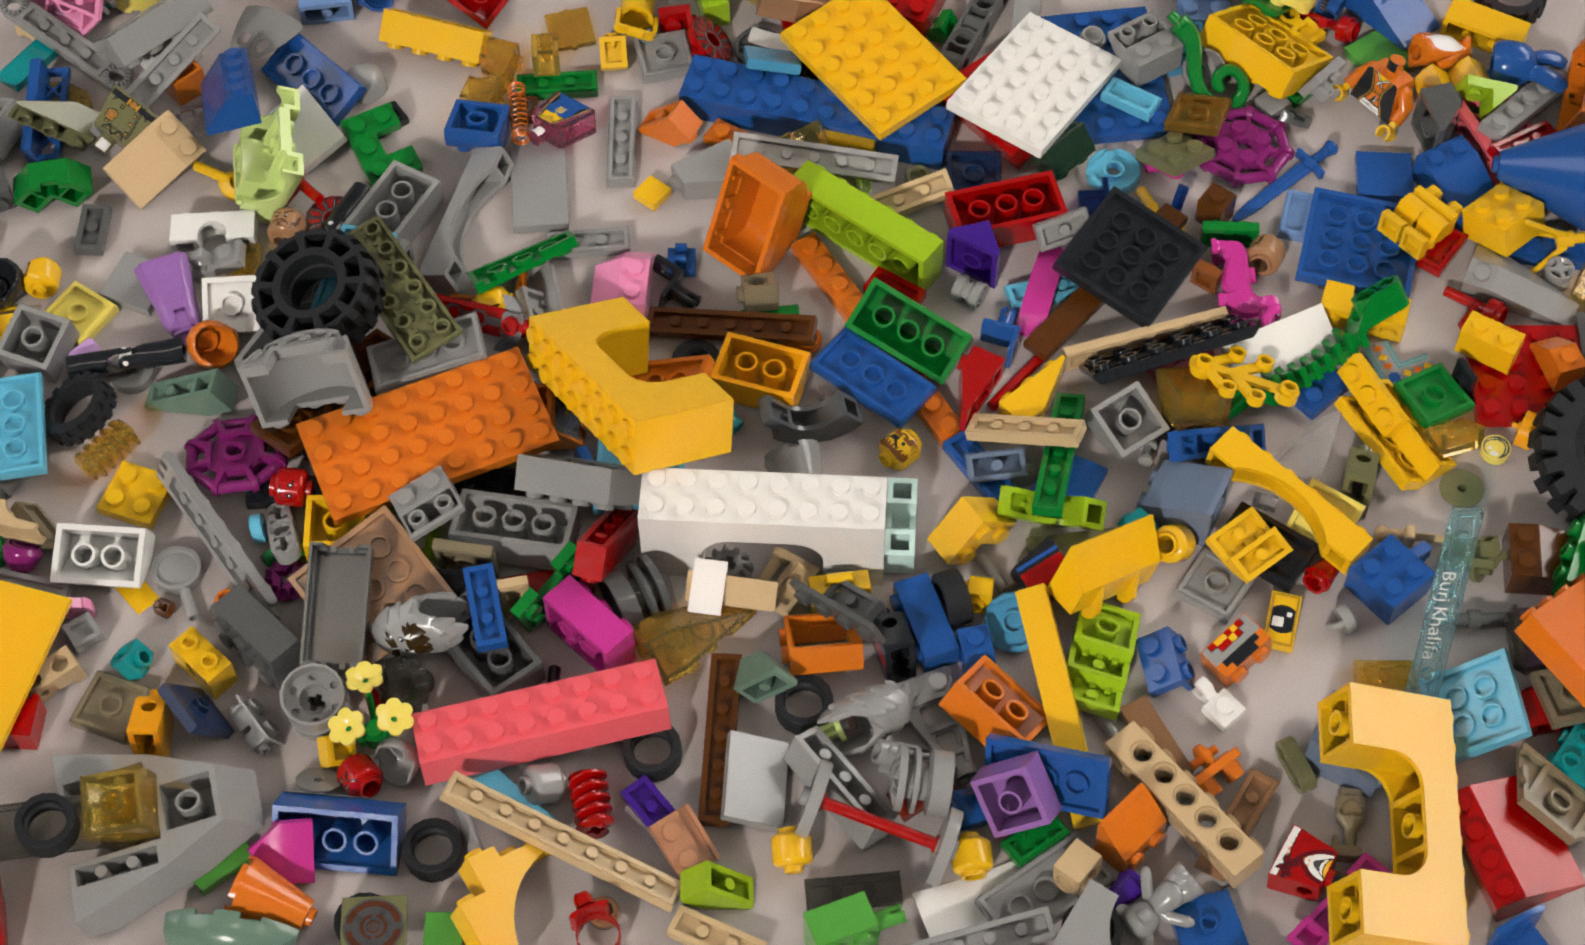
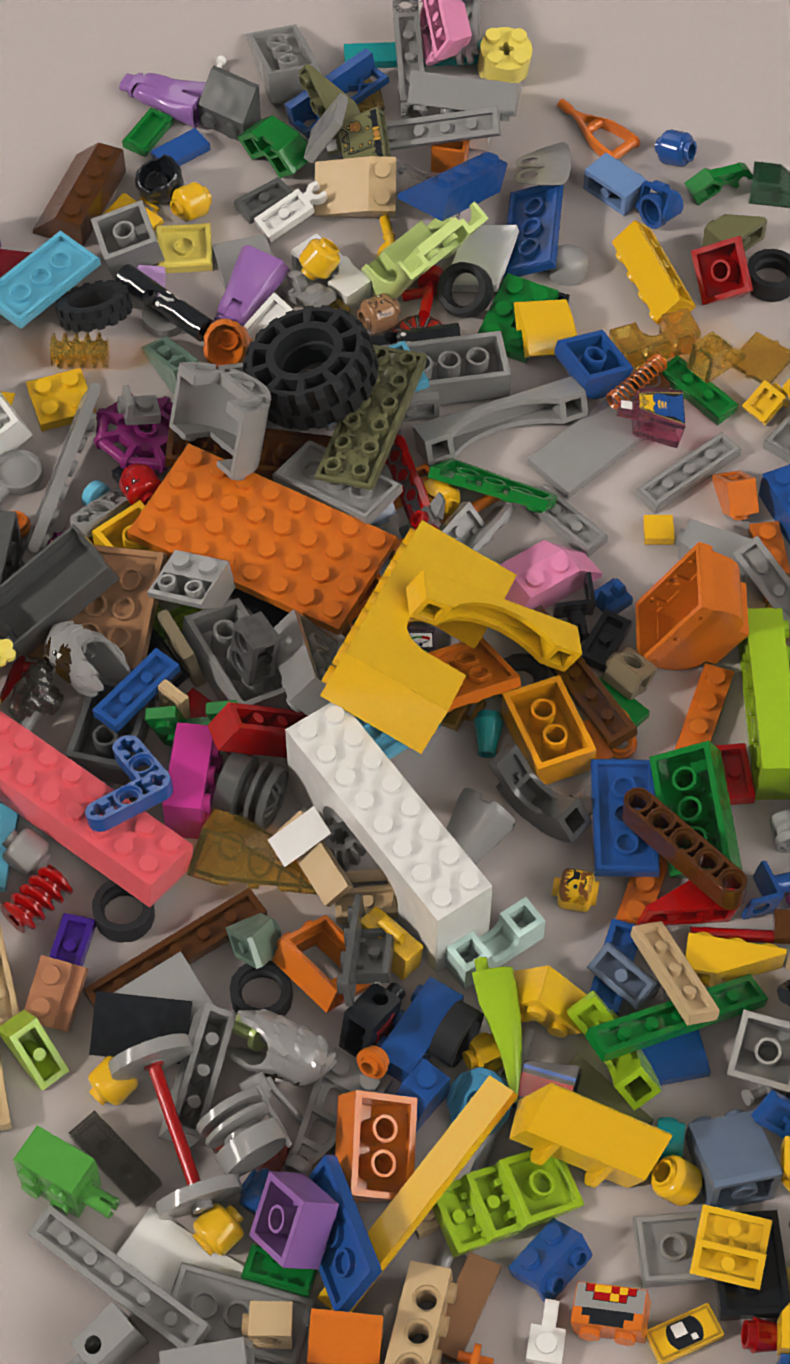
camera: 50 degrees right, 0 degrees up
(85, 135) = (326, 128): none -> light grey tile
(125, 220) = (289, 211): none -> white plate
(205, 226) = (319, 258): none -> yellow head
(215, 441) = (138, 409): none -> light grey bracket
(341, 143) = (445, 287): none -> black tyre
(414, 131) = (543, 325): none -> yellow slope
(532, 500) = (254, 648): none -> flat silver brick
(575, 652) = (142, 781): none -> blue beam
(690, 316) = (443, 600): none -> yellow arch
(714, 287) = (605, 639): none -> black plate
(763, 802) = (131, 1019): none -> black sticker
(930, 664) = (373, 1062): none -> orange plate
(952, 351) = (687, 861): none -> reddish brown beam
(957, 550) = (501, 1008): none -> lime piece

